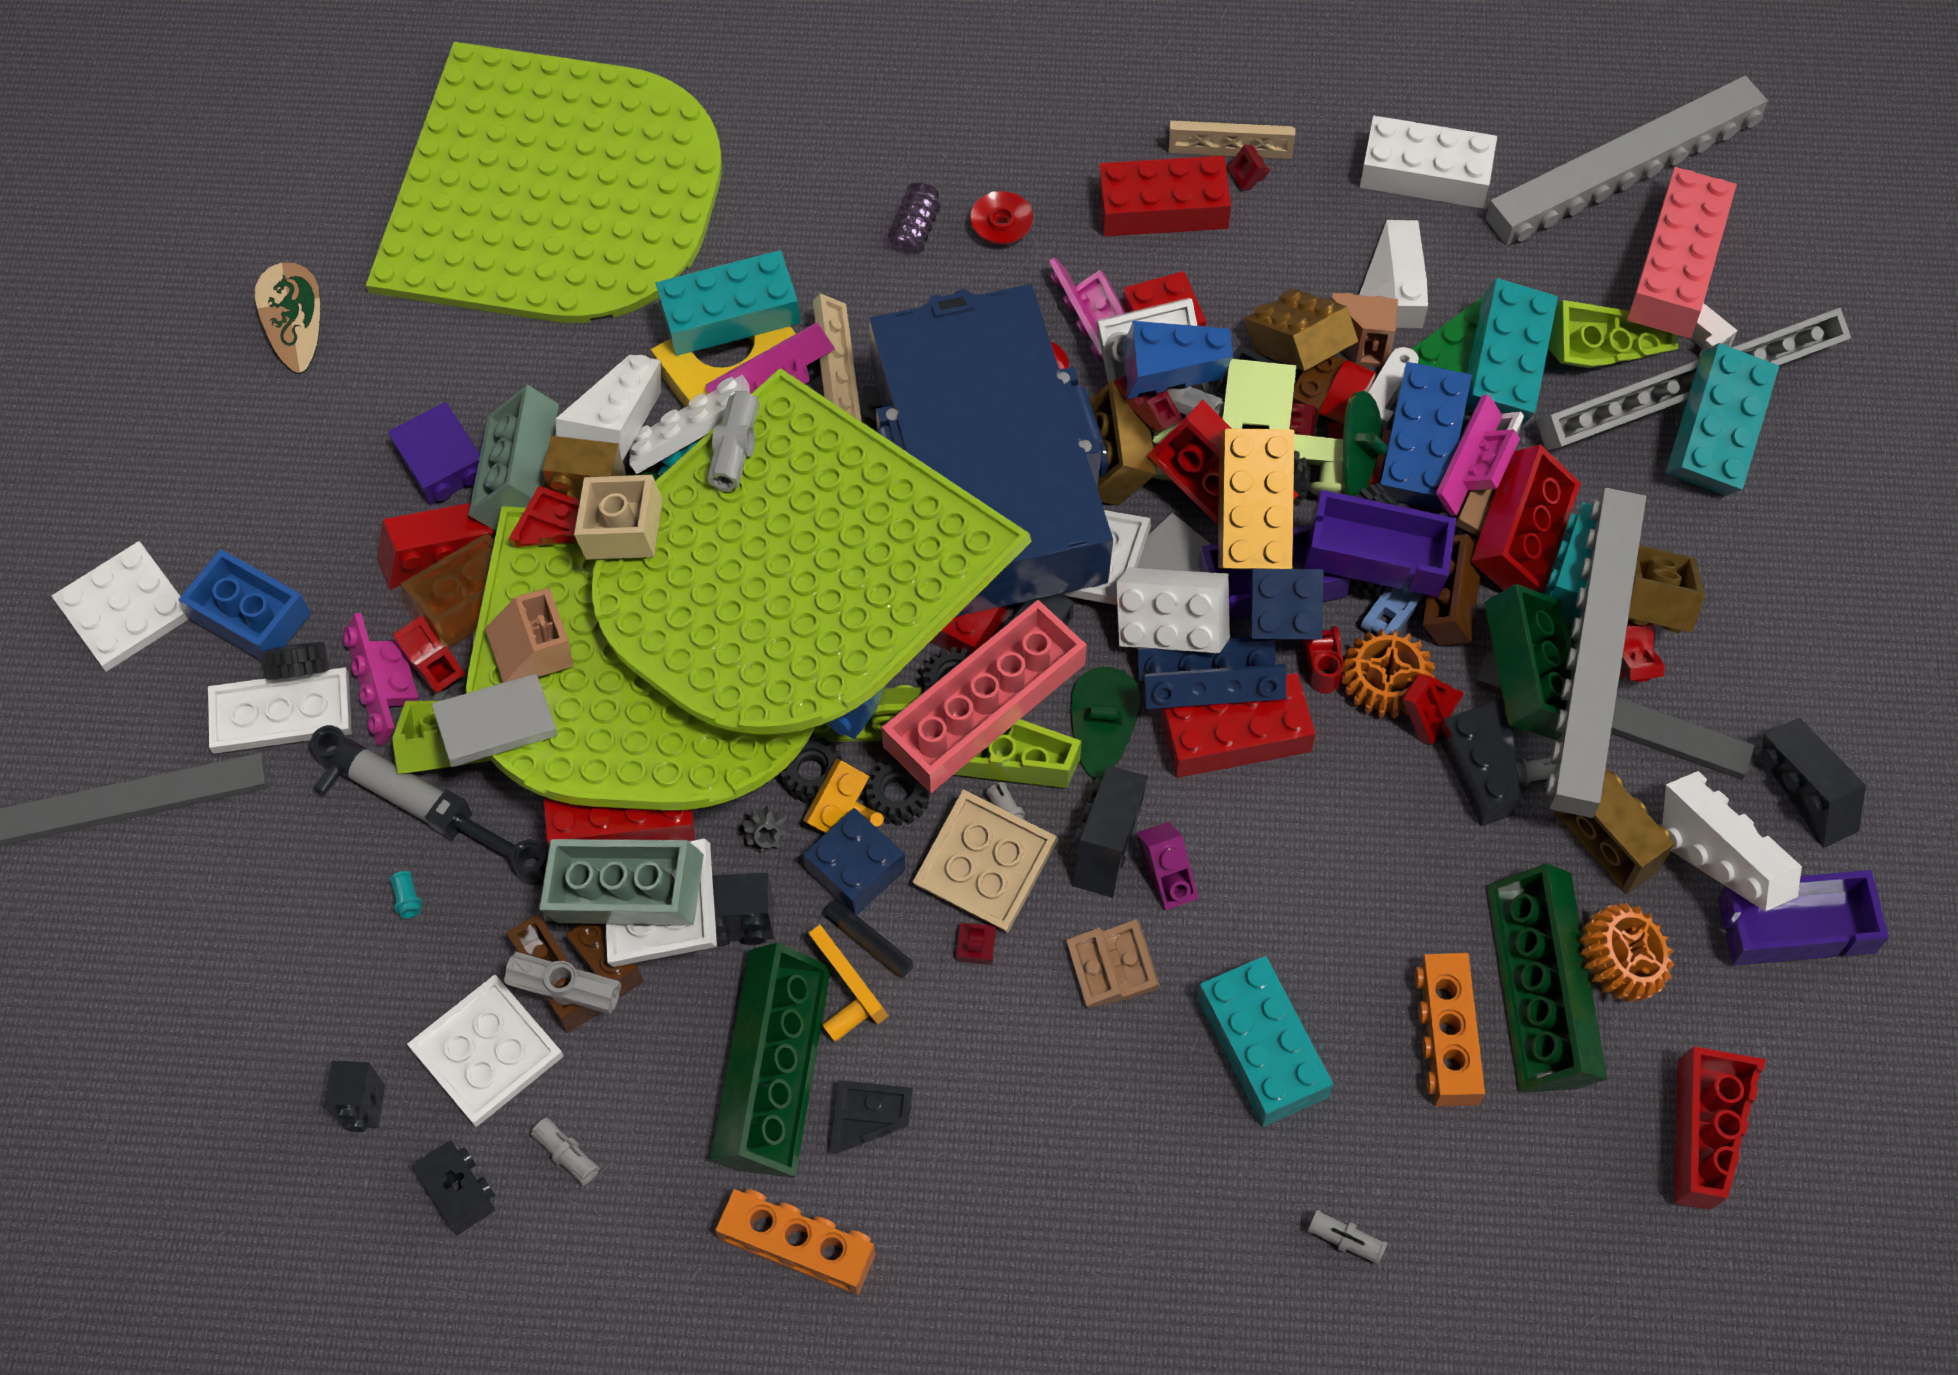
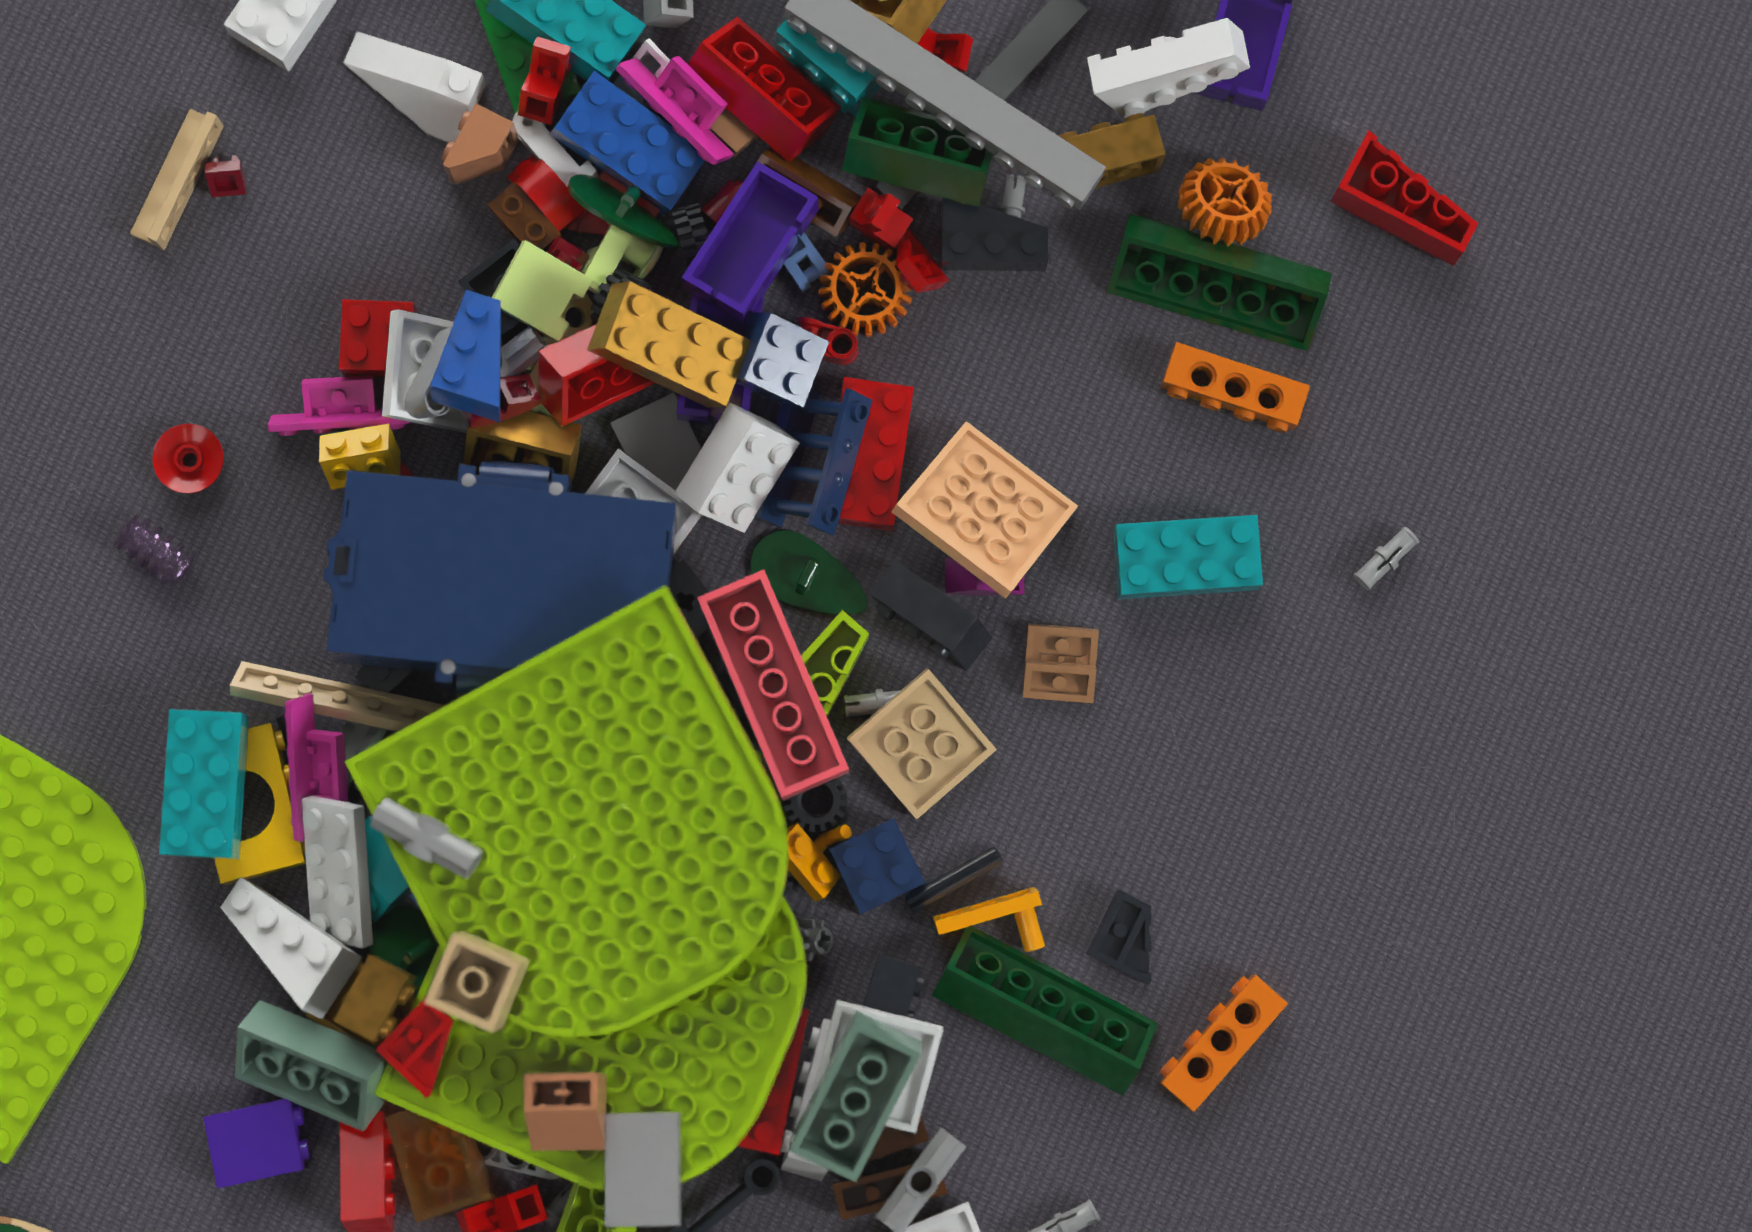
camera: 80 degrees left, 20 degrees up
(976, 943) = (994, 781): dark red tile -> none
(1065, 330) = (360, 450): none -> yellow brick
(1164, 196) = (229, 279): red brick -> none
(1228, 833) = (985, 509): none -> light nougat plate
(1300, 329) = (464, 212): pearl gold brick -> none
(1449, 351) = (545, 81): none -> red brick
(1458, 656) = (880, 219): none -> red brick

